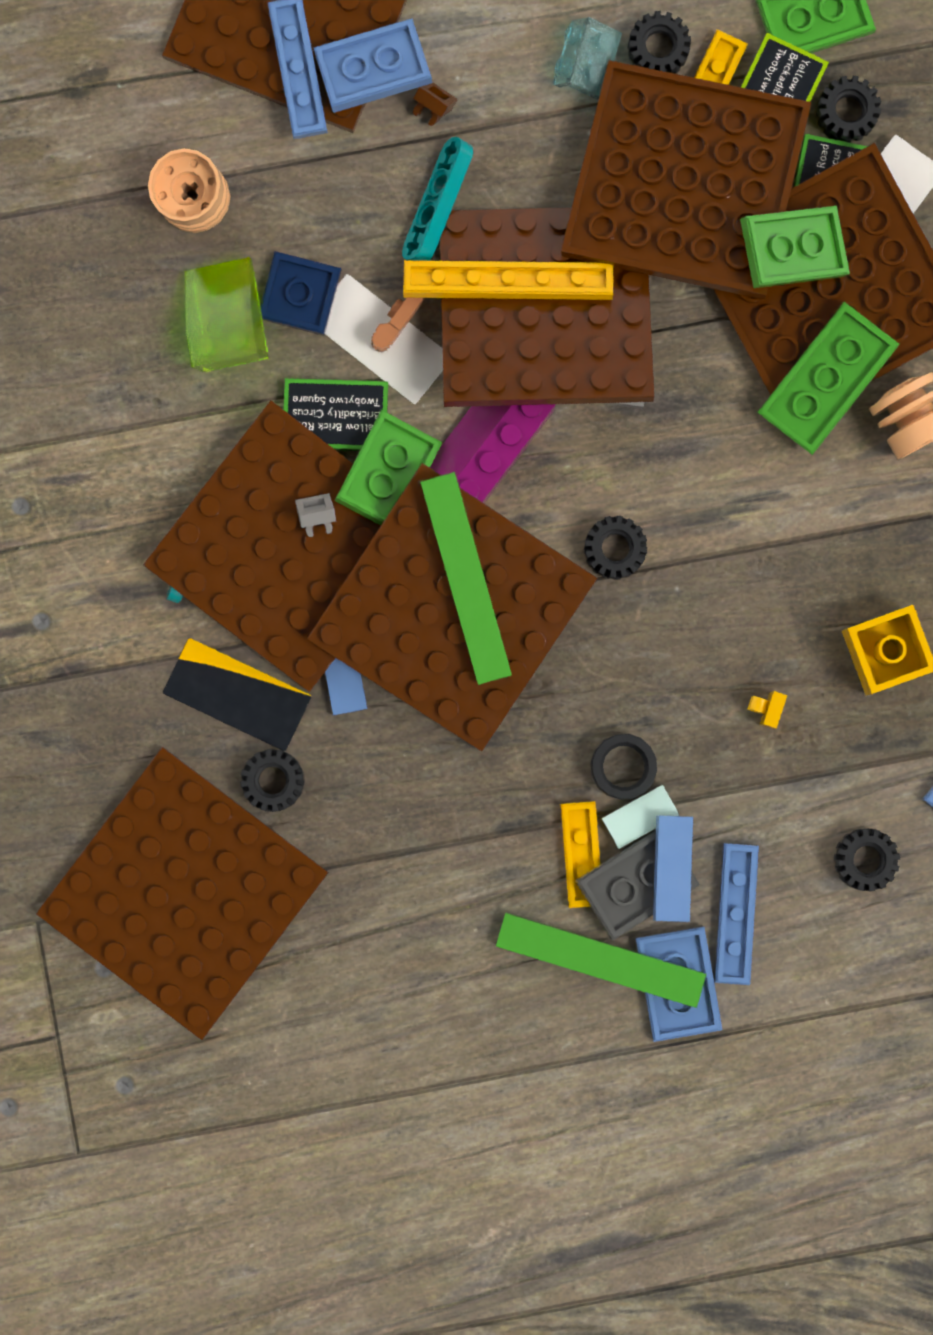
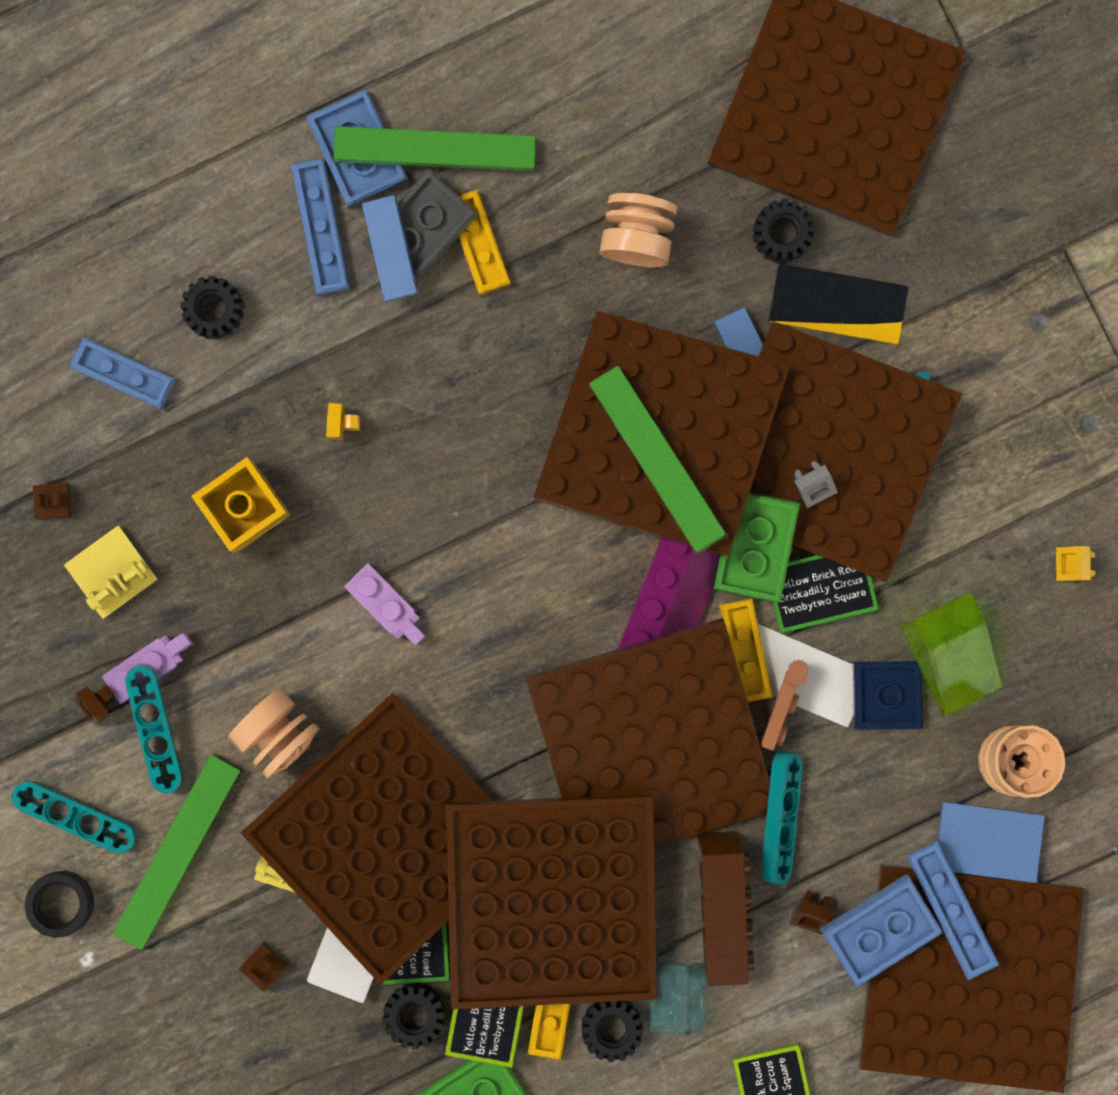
camera: 165 degrees right, 0 degrees up
(79, 370) = (1074, 563): none -> yellow tile
(239, 125) = (991, 841): none -> medium blue tile
(419, 818) = (639, 222): none -> light nougat wheel
(426, 376) = (747, 648): none -> yellow tile
(508, 280) = (695, 756): yellow tile -> none
(519, 129) = (724, 908): none -> reddish brown wedge
(624, 528) = (517, 514): black tyre -> none
(639, 816) = (434, 291): light aqua tile -> none
(641, 747) = (452, 308): black tyre -> none
(771, 516) = (385, 604): none -> lavender hinge
(794, 246) = (430, 861): bright green tile -> none
(828, 378) = (365, 746): bright green tile -> none

